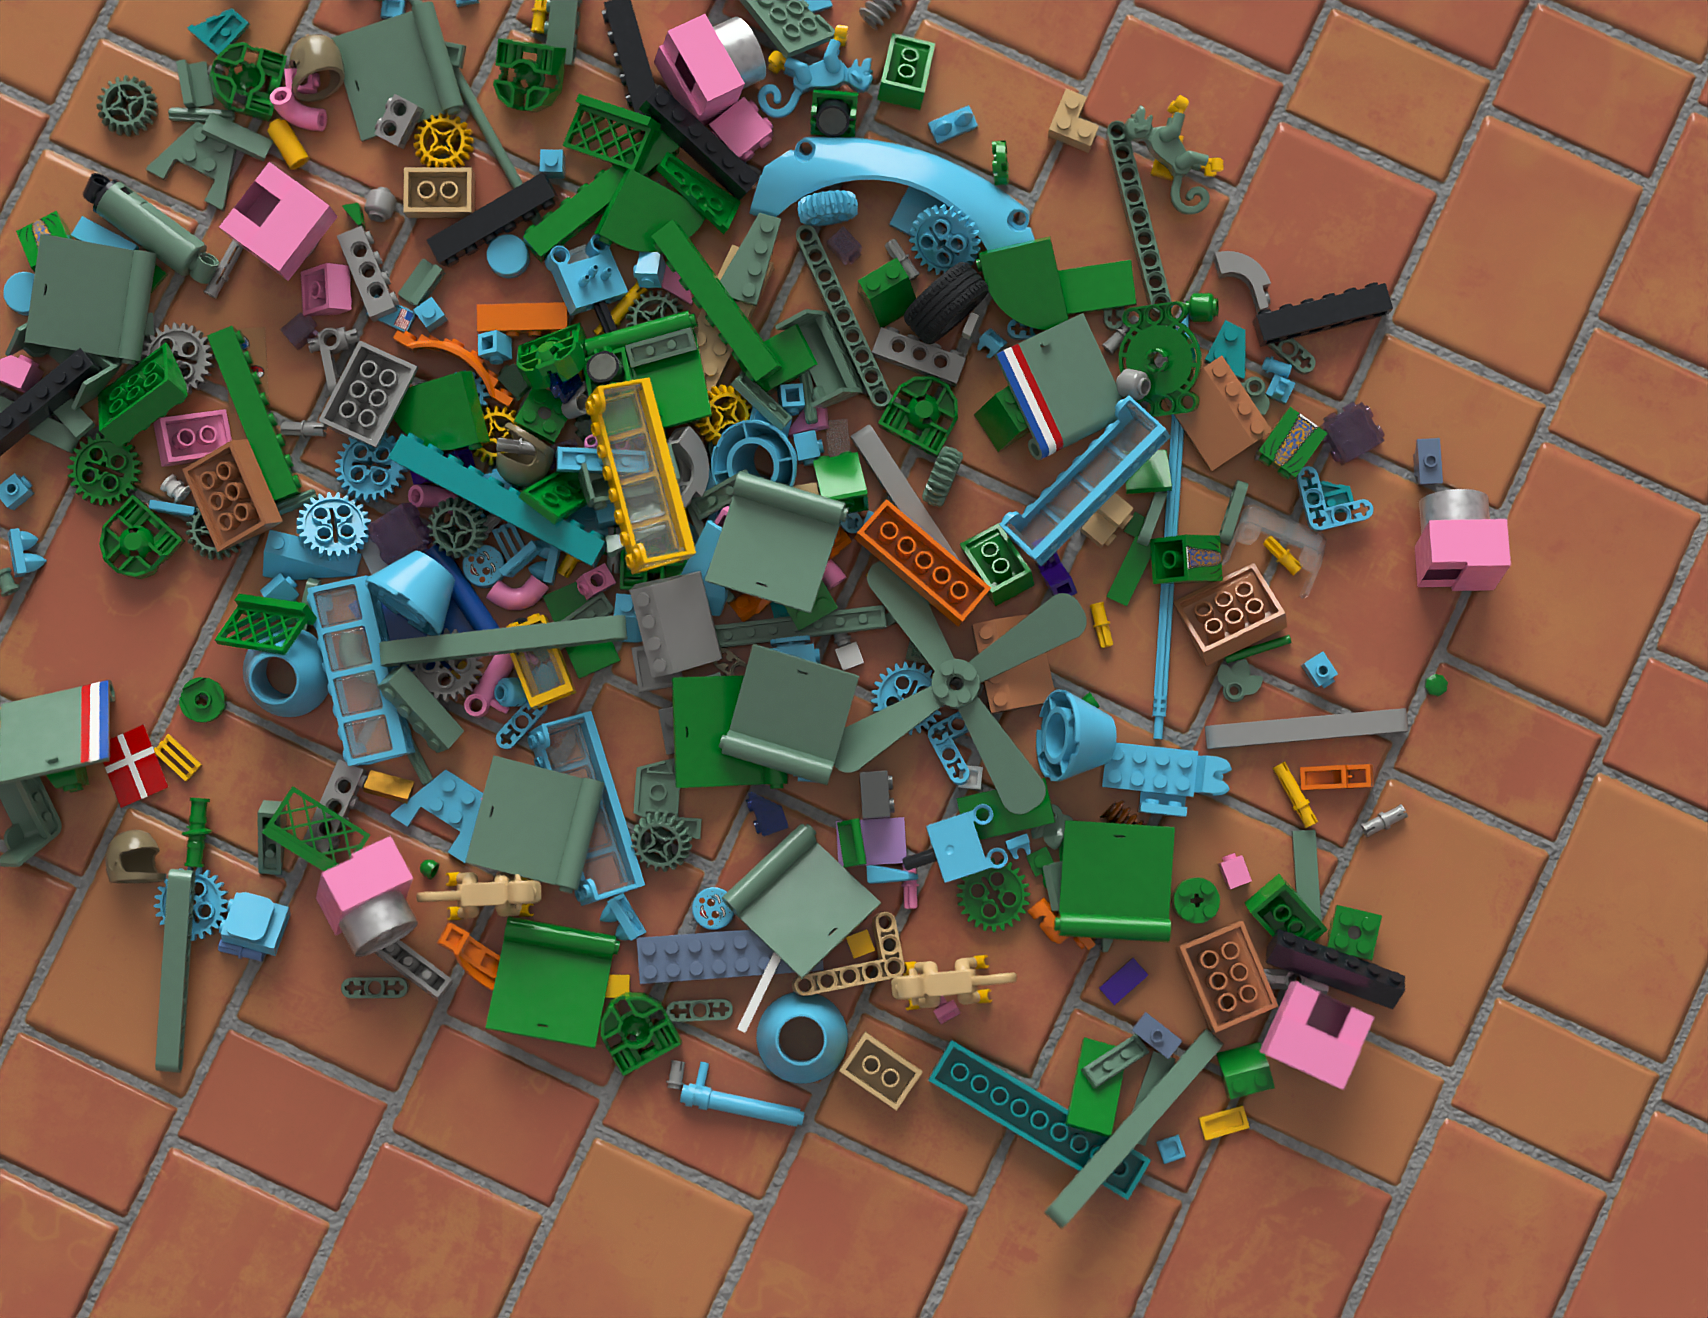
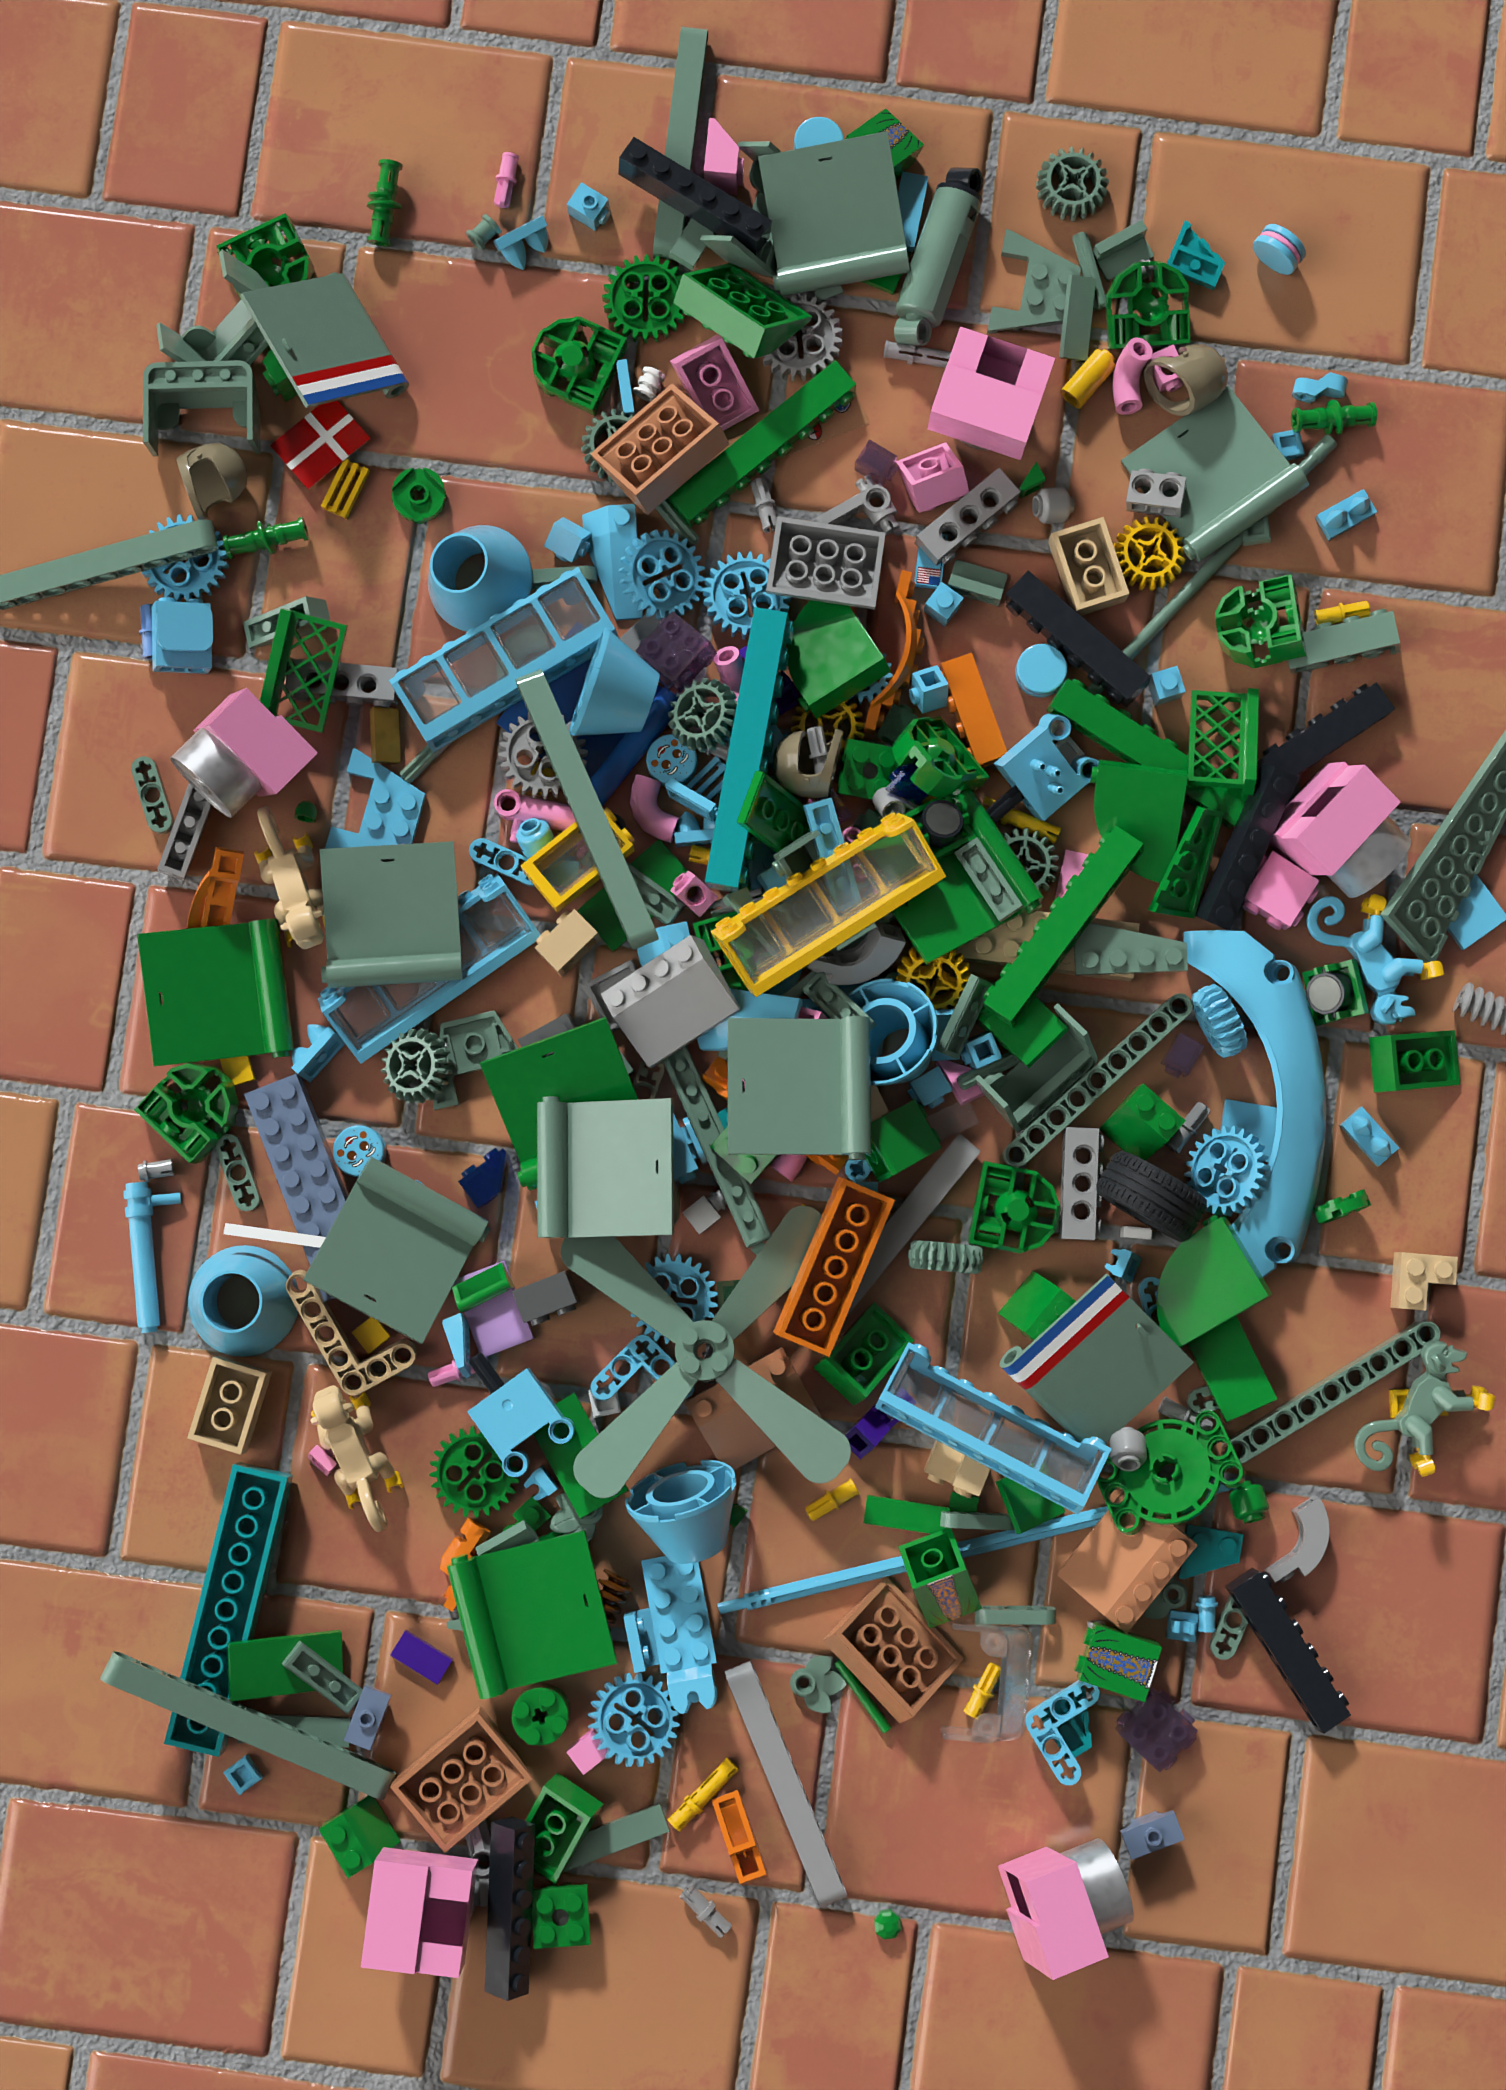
camera: 75 degrees right, 0 degrees up
(55, 847) = (199, 385): none -> sand green windscreen
(271, 610) = (541, 536): green fence -> none
(420, 708) = (481, 741): sand green brick -> none
(602, 692) = (567, 942): none -> tan brick
(649, 270) = (1077, 837): medium azure brick -> none
(1223, 1122) = (292, 1827): yellow tile -> none
(1234, 844) = (619, 1741): none -> medium azure gear
(1320, 670) = (860, 1778): medium azure brick -> none

